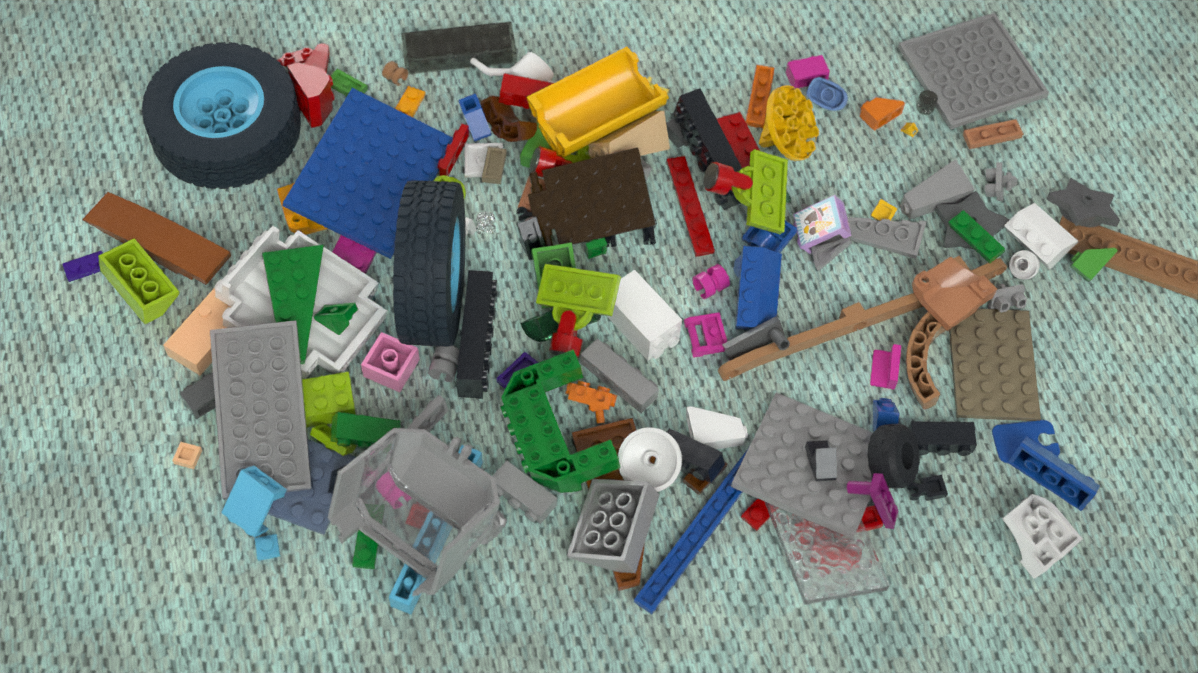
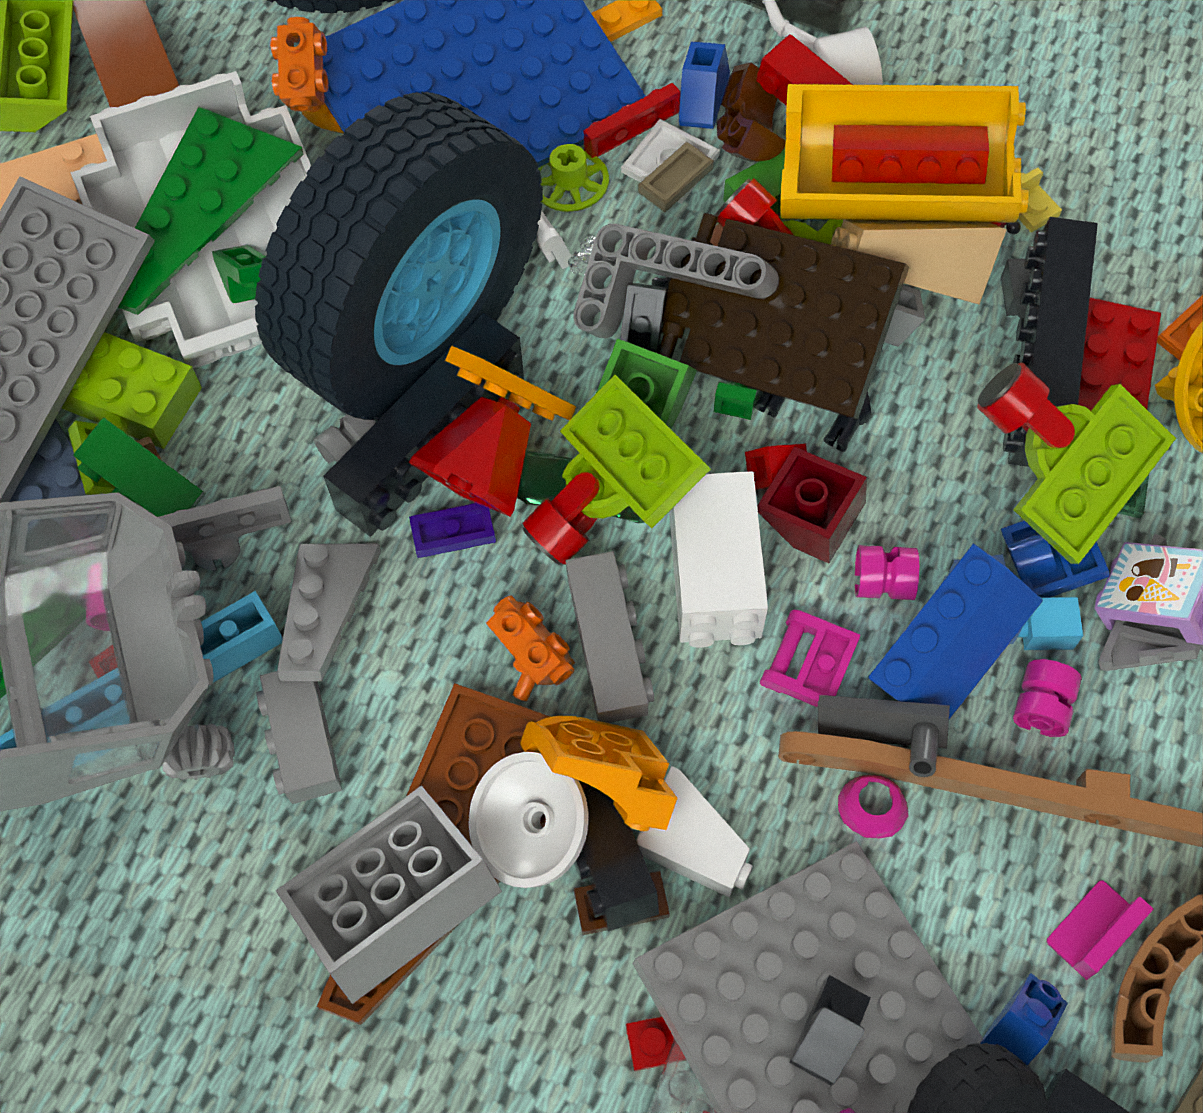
camera: 40 degrees right, 5 degrees up
(298, 213) = (301, 71): none -> orange brick
(390, 362) = (267, 396): bright pink brick -> none
(489, 435) = (320, 604): none -> light grey wing
(505, 293) = (500, 382): none -> light orange plate
(513, 332) = (480, 454): none -> red slope
(529, 205) = (665, 262): none -> light grey beam
(538, 430) = (383, 641): green wedge -> none
(598, 100) = (910, 154): none -> red brick
(637, 262) = (767, 462): none -> red panel
(662, 270) = (813, 503): none -> dark red slope
(668, 415) = (611, 759): none -> light orange slope
(689, 543) = (492, 1014): blue plate -> none
(690, 206) = (951, 425): red plate -> none
(771, 383) = (864, 823): none -> dark pink piece
(790, 263) = (1053, 625): none -> medium azure brick
(807, 292) = (1047, 697): none -> dark pink wheel

